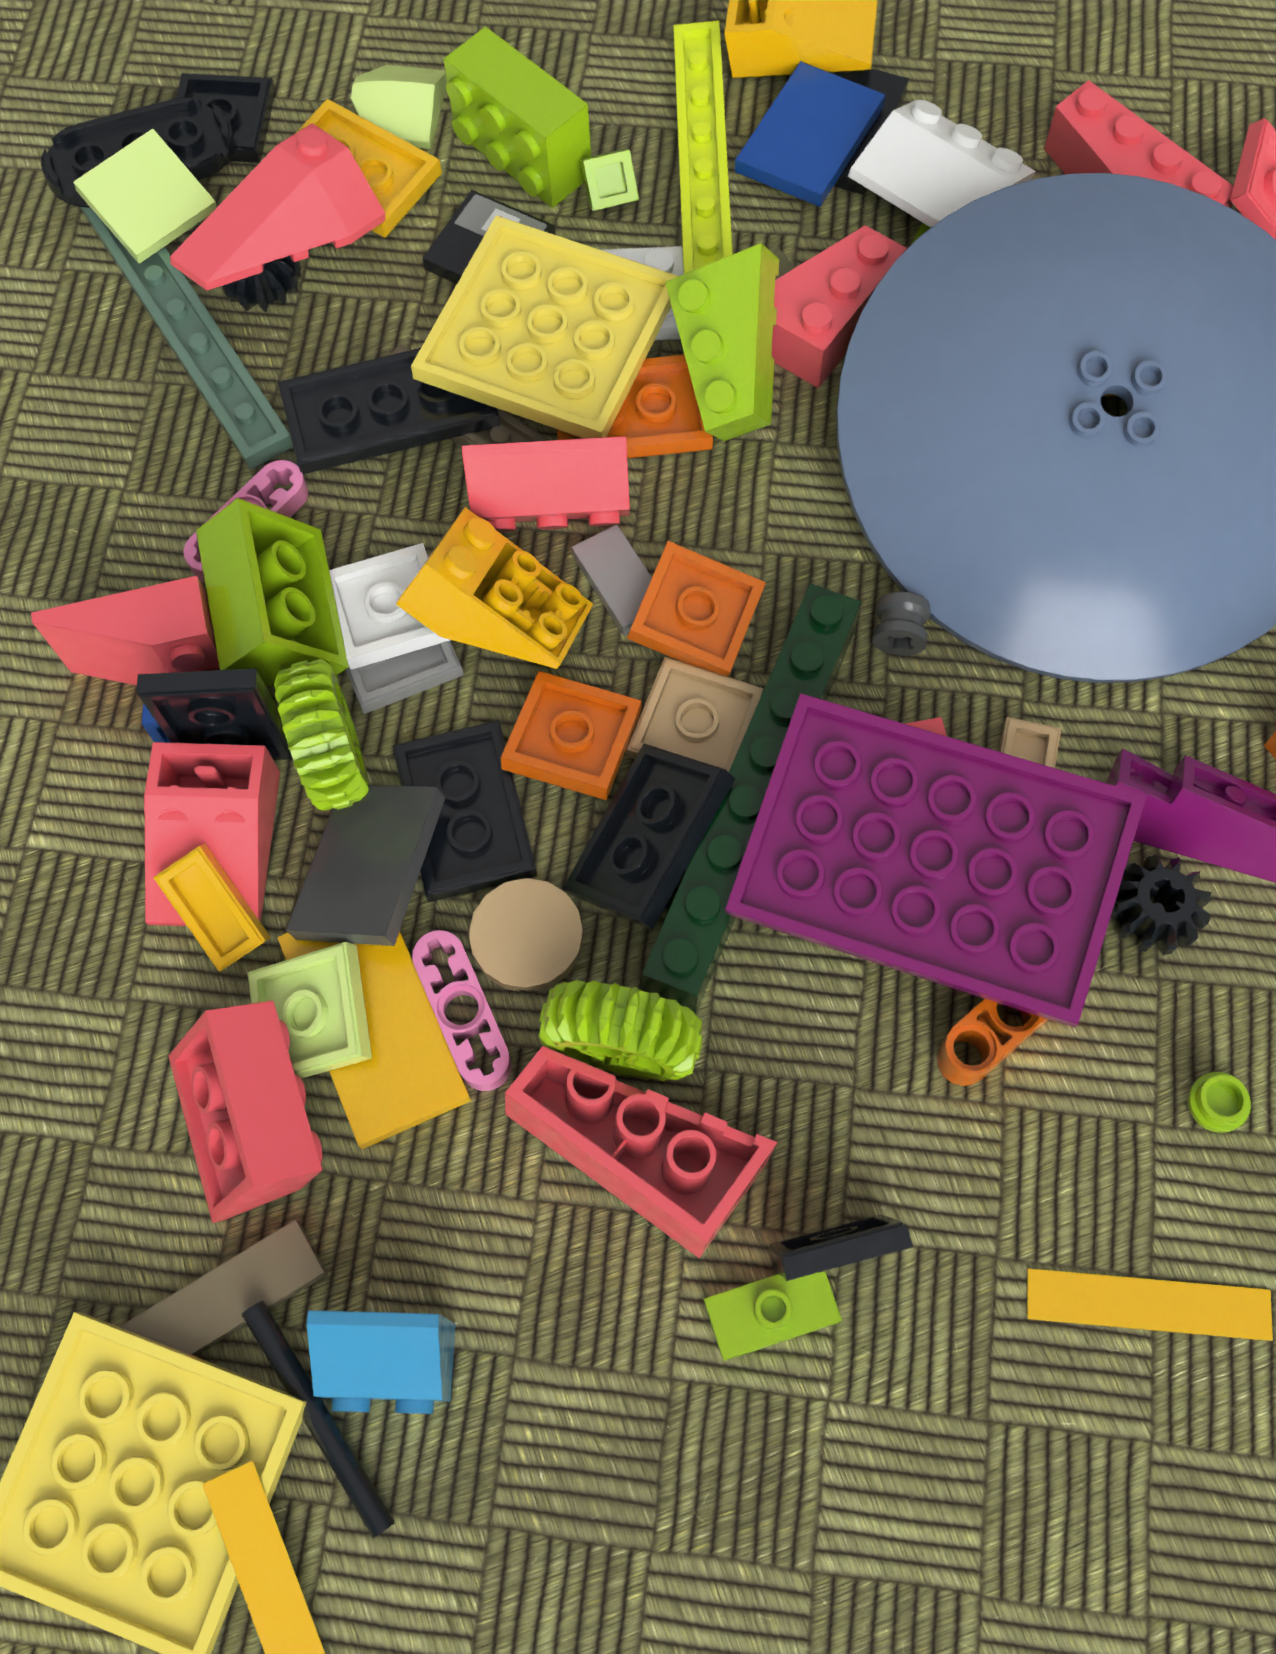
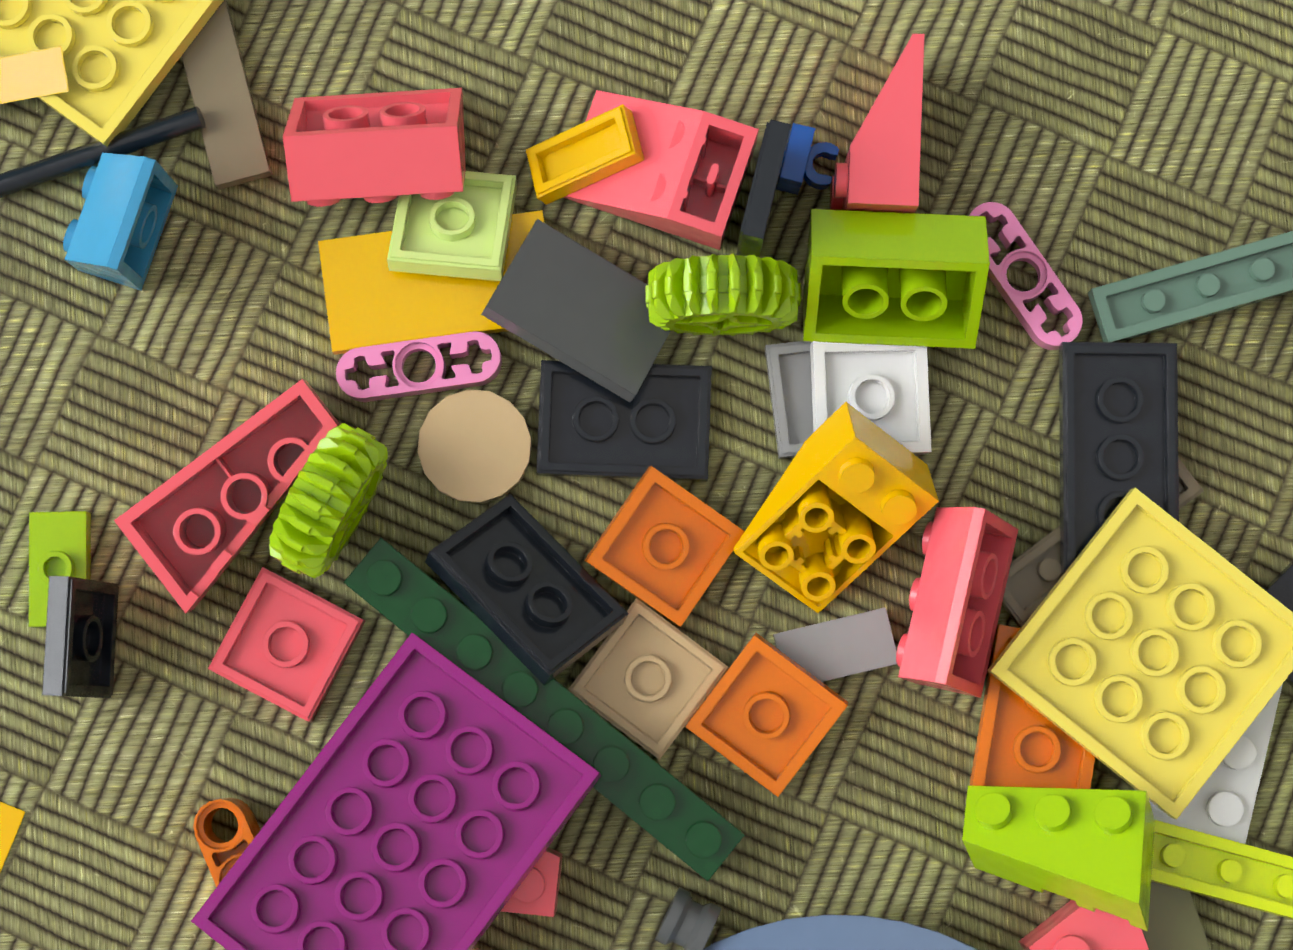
camera: 105 degrees right, 15 degrees up
(772, 1055) = (286, 644): none -> coral tile

